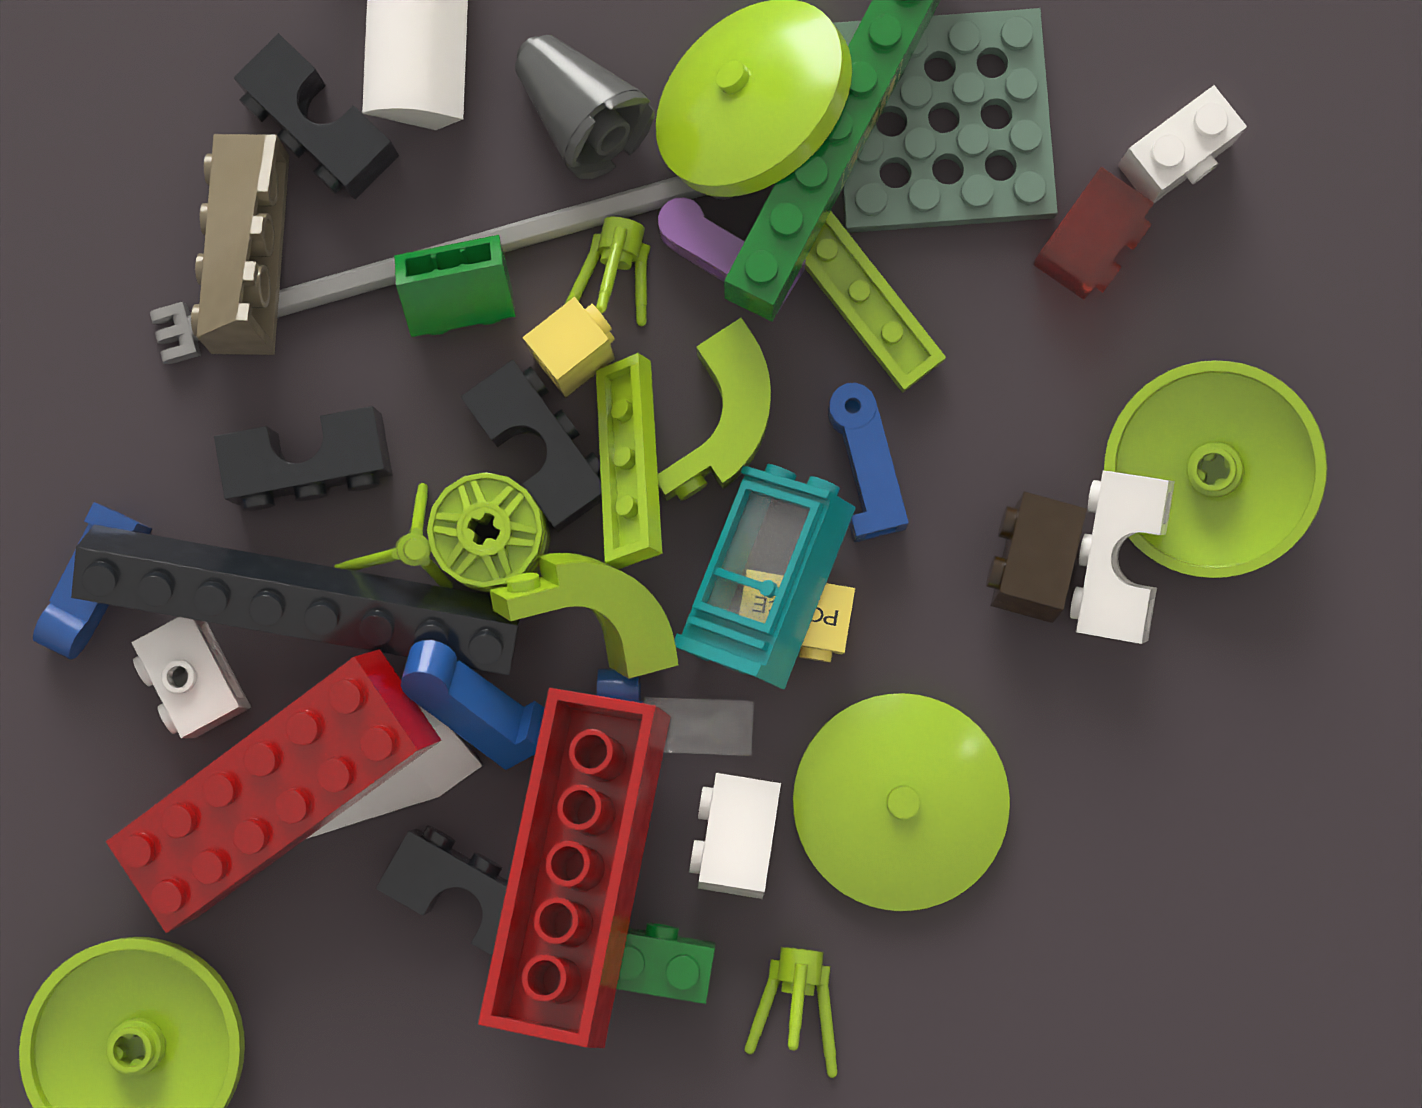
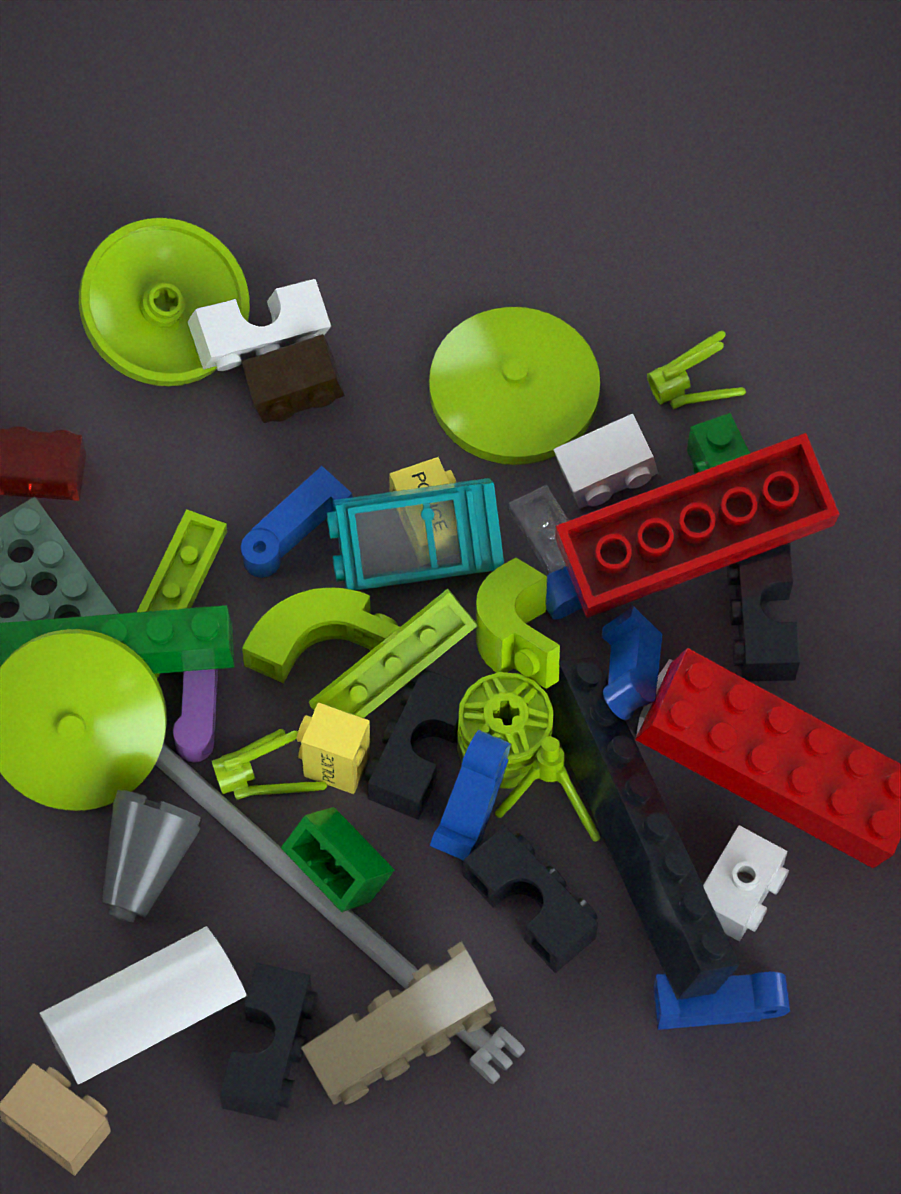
camera: 130 degrees left, 20 degrees down
(425, 446) = (472, 796): none -> blue leg

